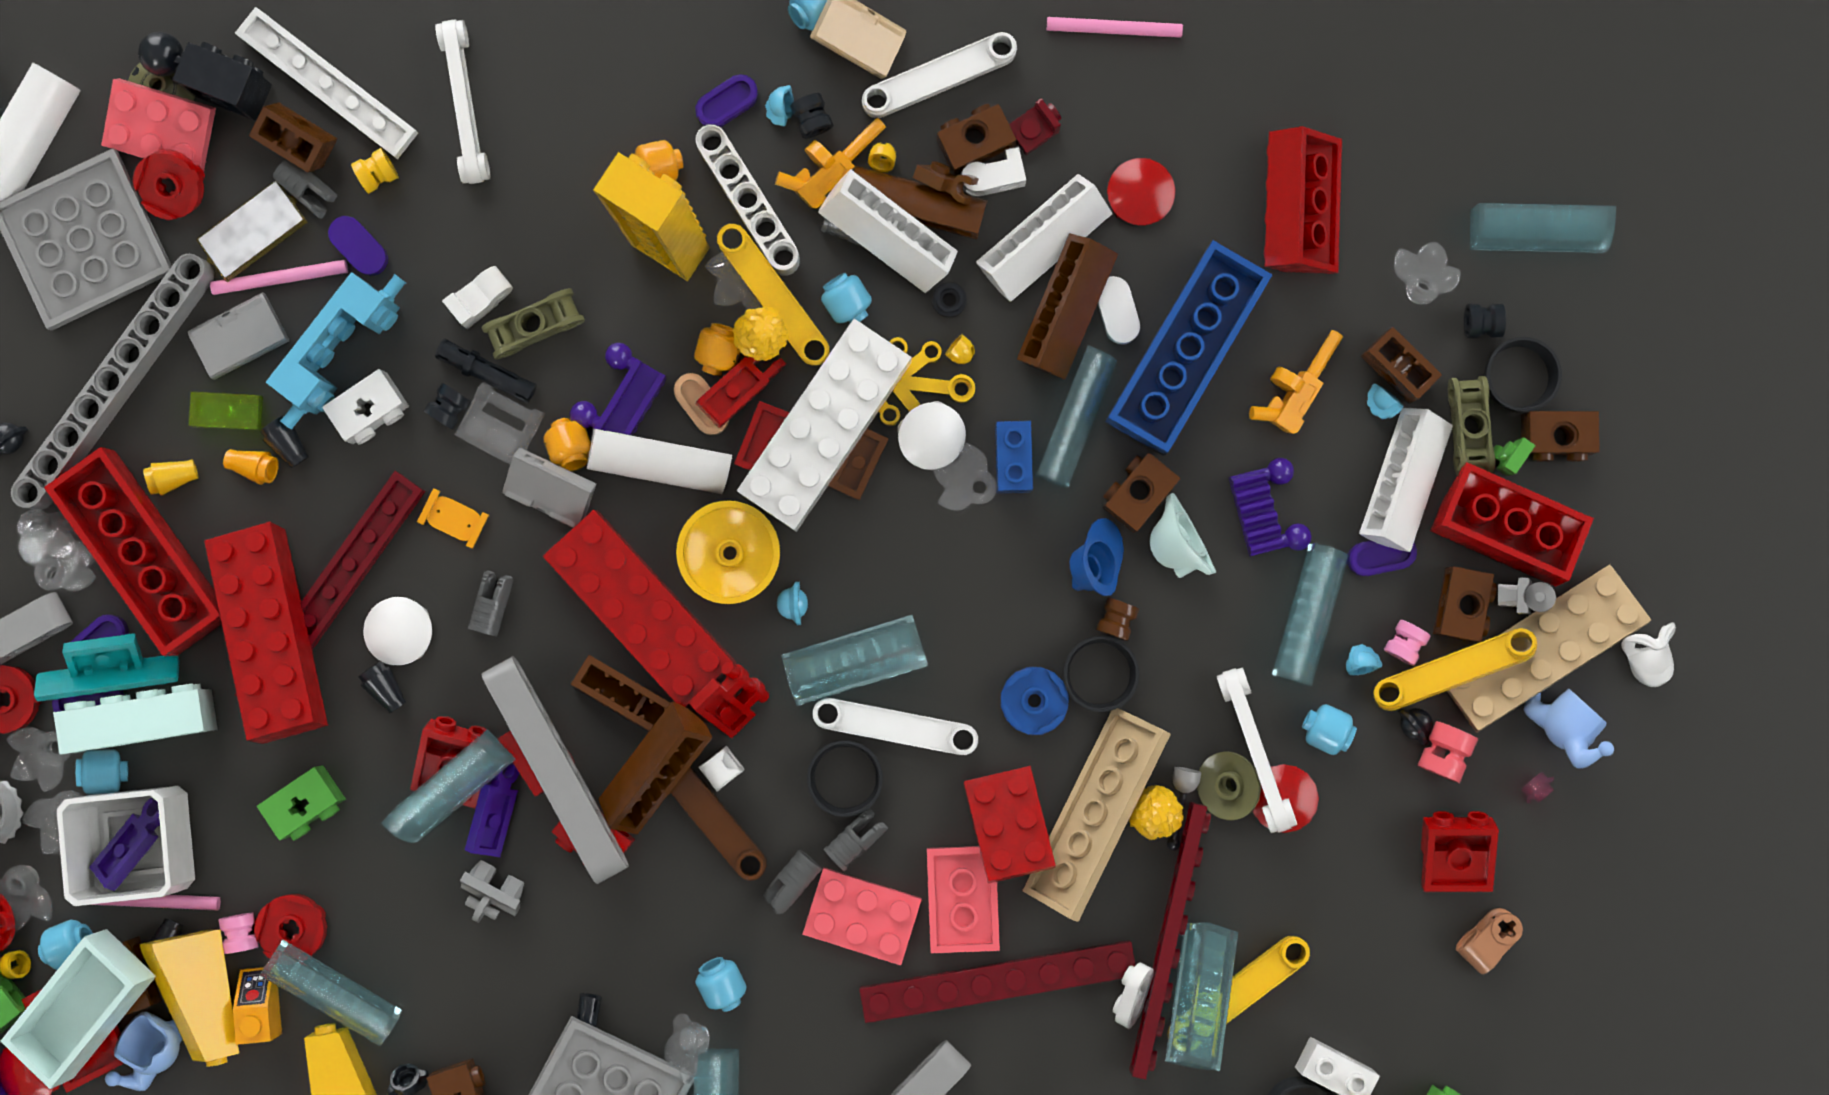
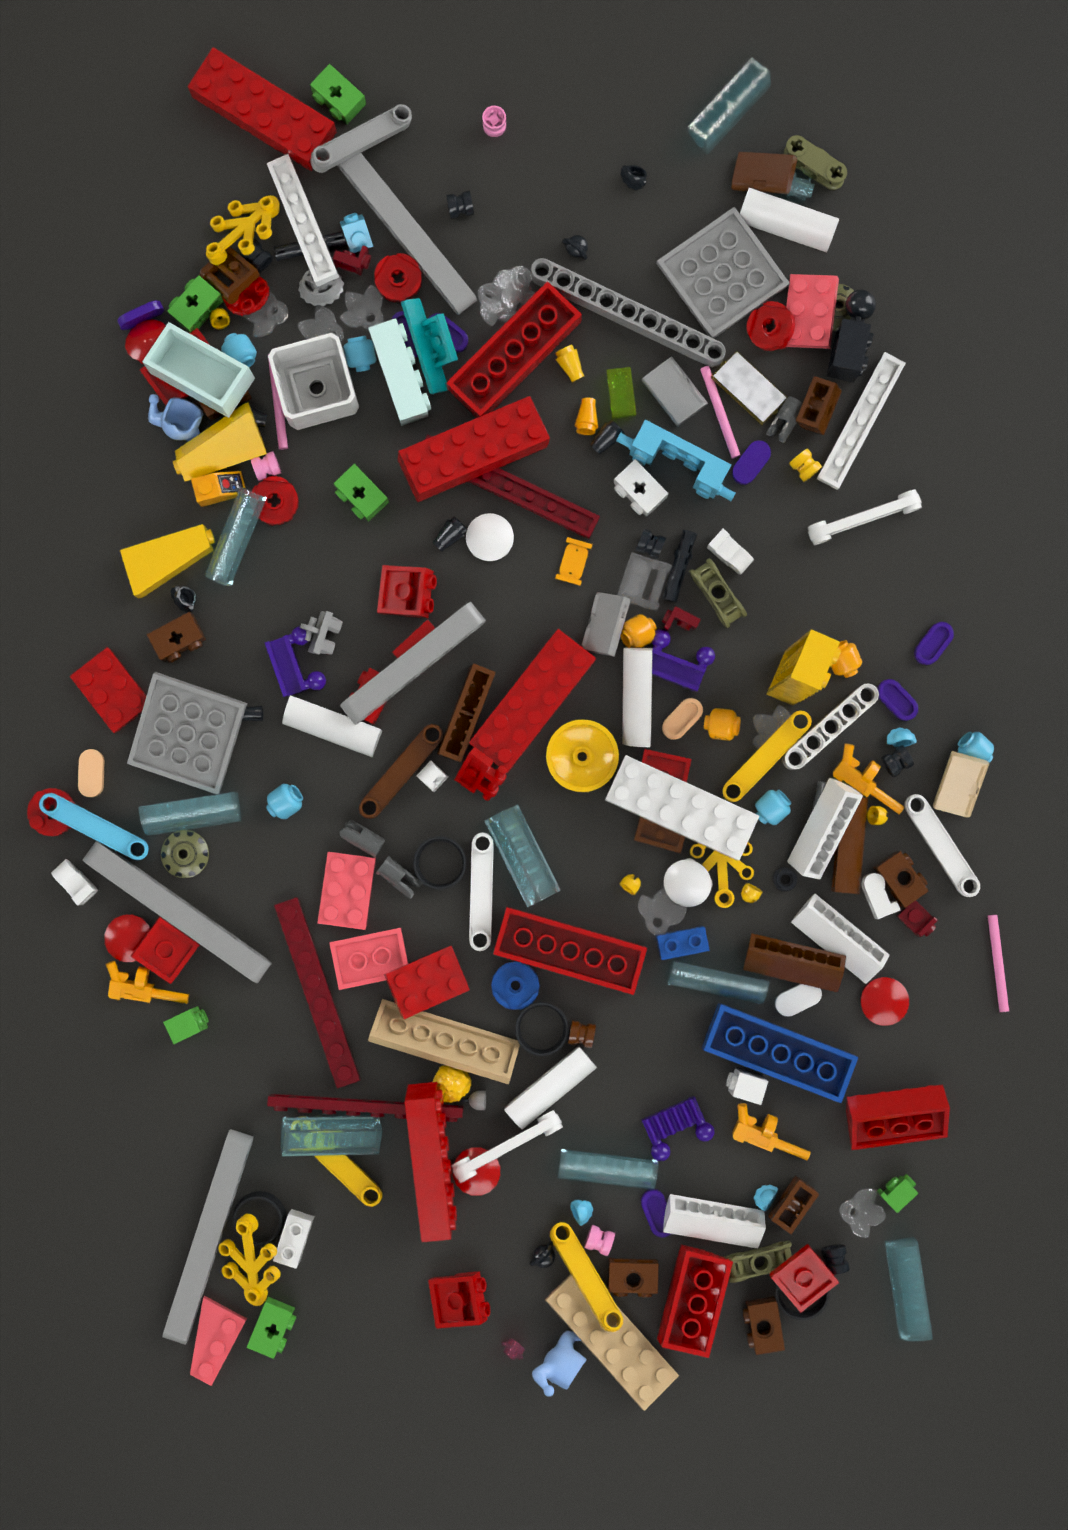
camera: 80 degrees right, 0 degrees up
(127, 847) = (313, 382): dark purple plate -> none
(448, 788) = (388, 592): clear light blue brick -> none
(487, 611) = (512, 597): dark grey hinge -> none
(493, 815) = (376, 624): dark purple plate -> none
(530, 949) = (287, 667): none -> dark purple gear
(561, 377) = (684, 619): none -> dark red bracket
(626, 900) = (331, 726): none -> white brick
(654, 769) = (424, 730): reddish brown brick -> none
(656, 37) = (933, 643): none -> dark purple tile
(685, 1046) = (238, 784): clear plate -> none
(736, 389) = (698, 742): red hinge -> none
(760, 333) = (737, 752): yellow piece -> none
(792, 603) = (554, 806): medium azure piece -> none
(920, 516) = (630, 885): none -> yellow hinge
(939, 177) = (869, 857): reddish brown plate -> none
(998, 615) = (570, 950): none -> red brick
(1099, 559) = (620, 1014): blue piece -> none
(1131, 1002) = (329, 1089): white plate -> none
(1158, 481) = (684, 1045): reddish brown brick -> none
(1178, 543) = (642, 1067): light aqua hat -> none
(1184, 676) = (550, 1087): none -> white brick
(1216, 788) = (472, 1124): olive dish -> none
(1227, 401) = (747, 1086): none -> white brick
(1261, 862) = (430, 1161): none -> red brick
(1329, 729) = (529, 1195): medium azure head -> none
(1406, 217) = (899, 1192): none -> bright green brick
(1448, 739) = (537, 1280): coral wheel -> none
(1487, 942) = (400, 1329): nougat piece -> none
(1504, 367) = (804, 1278): none -> red plate
(1512, 455) = (743, 1293): bright green plate -> none
(1525, 595) = (646, 1319): light grey hips -> none
(1654, 663) = (614, 1418): white piece -> none

